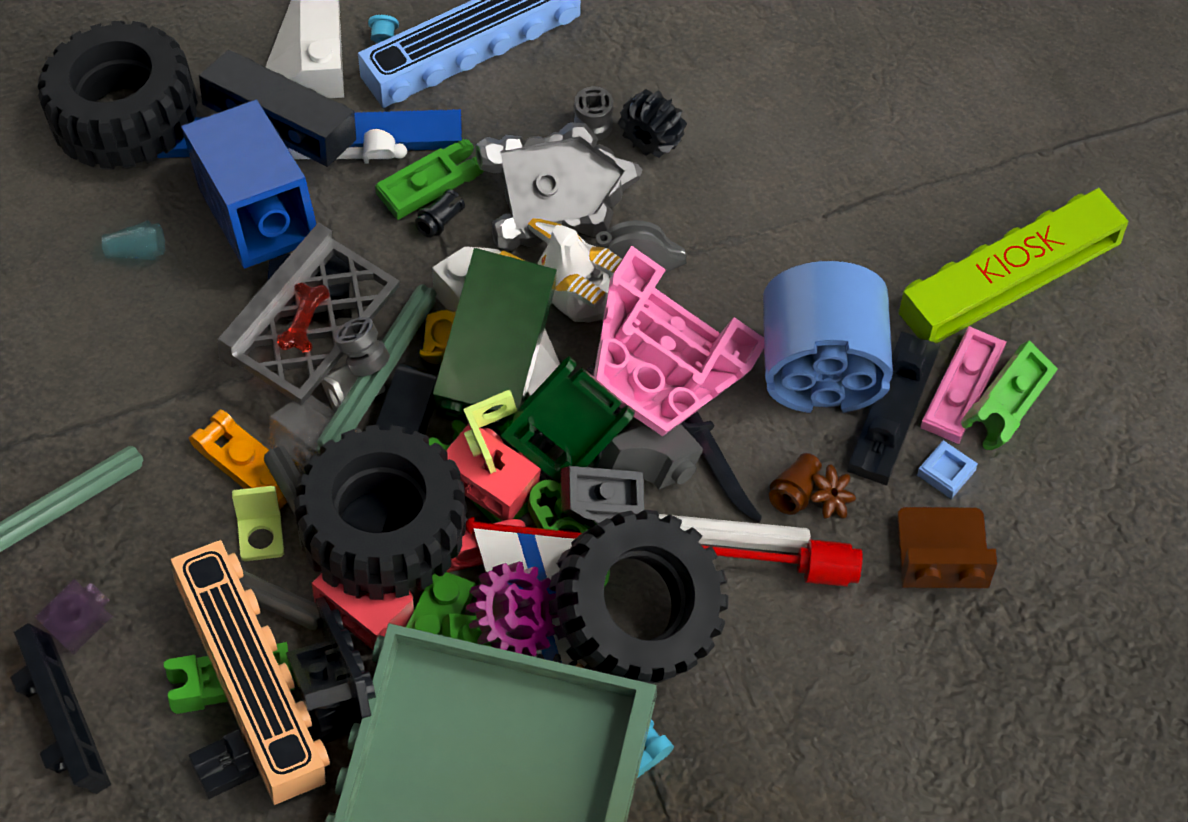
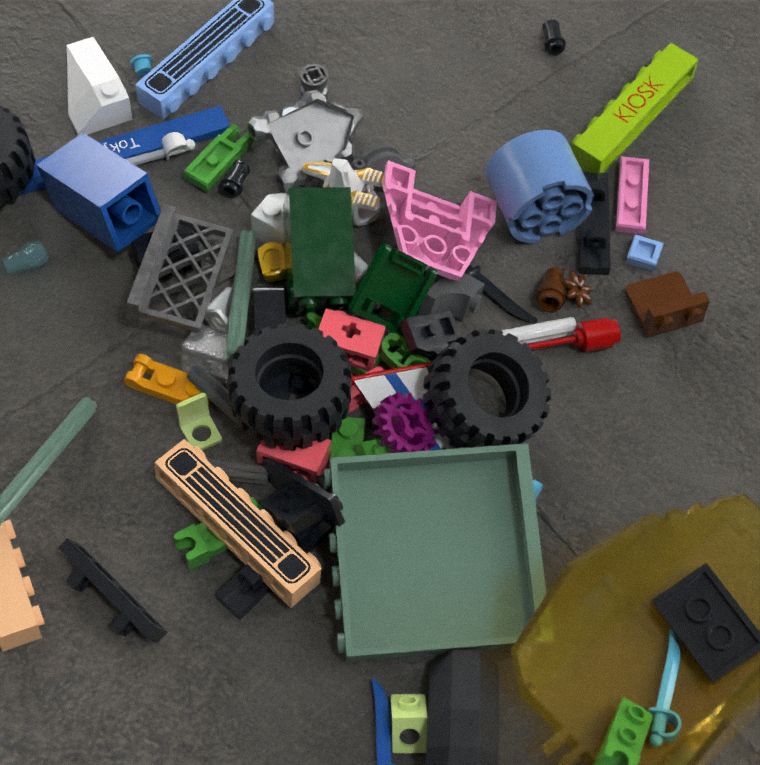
camera: 20 degrees left, 0 degrees up
(75, 614) = (96, 523): clear purple brick -> none
(297, 333) = (178, 258): clear red piece -> none
(298, 113) = (127, 137): black brick -> none
(360, 343) = (229, 282): flat silver wheel -> none
(477, 418) = (336, 315): yellowish green bracket -> none
(652, 123) = (358, 78): black gear -> none
(942, 143) = (554, 41): none -> black pin
(1011, 395) = (667, 193): bright green plate -> none

